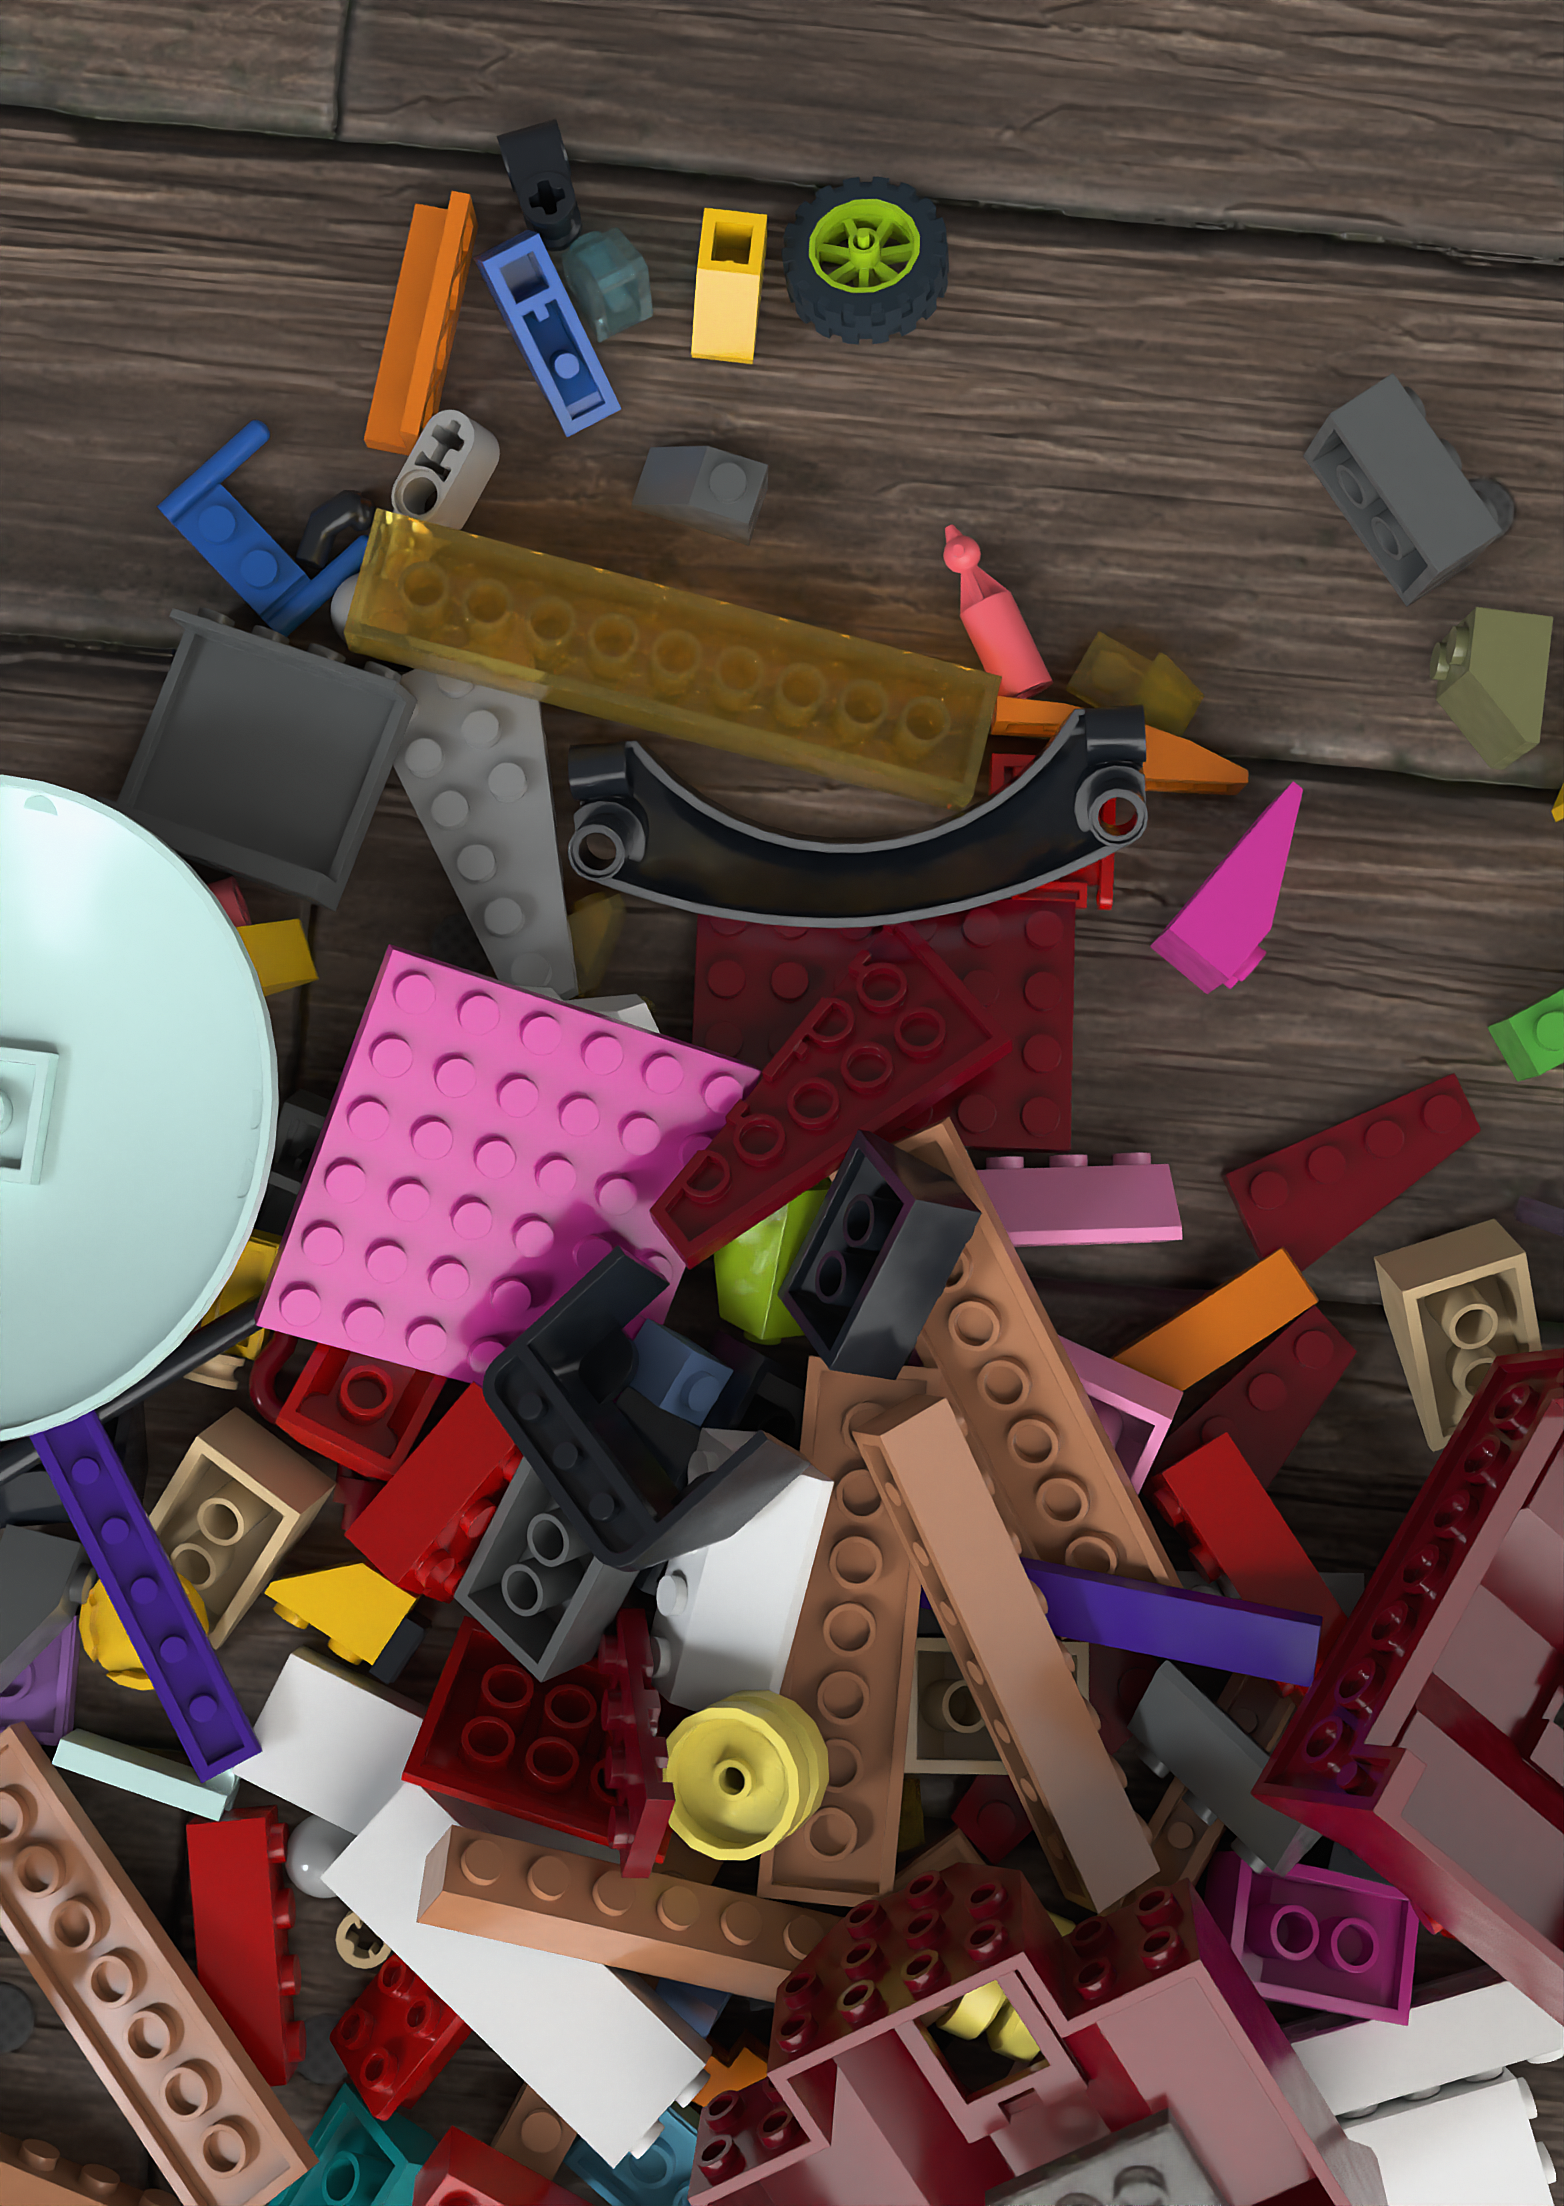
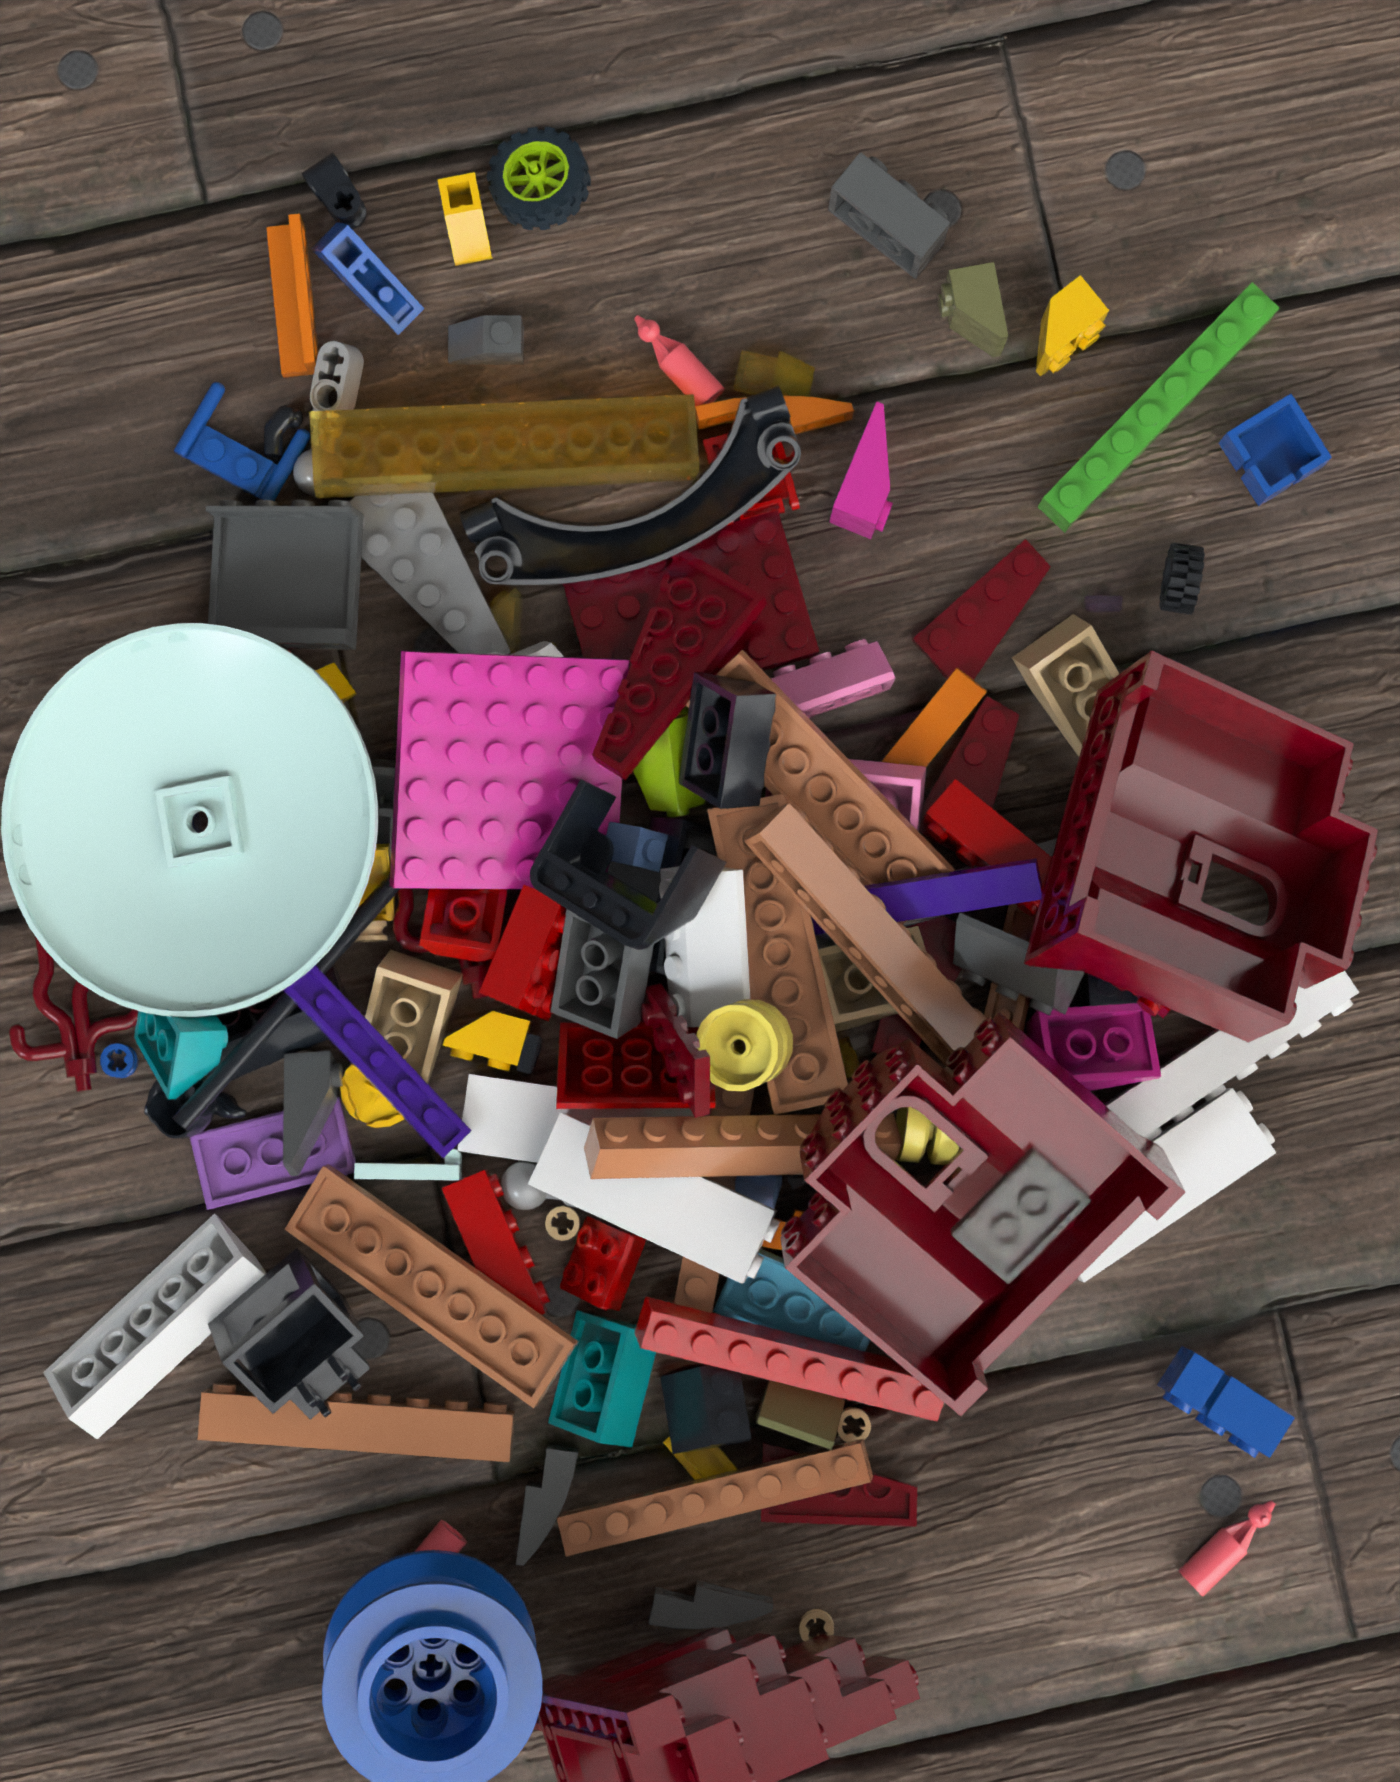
camera: 15 degrees left, 0 degrees up
(608, 281) = (393, 237): clear light blue slope -> none

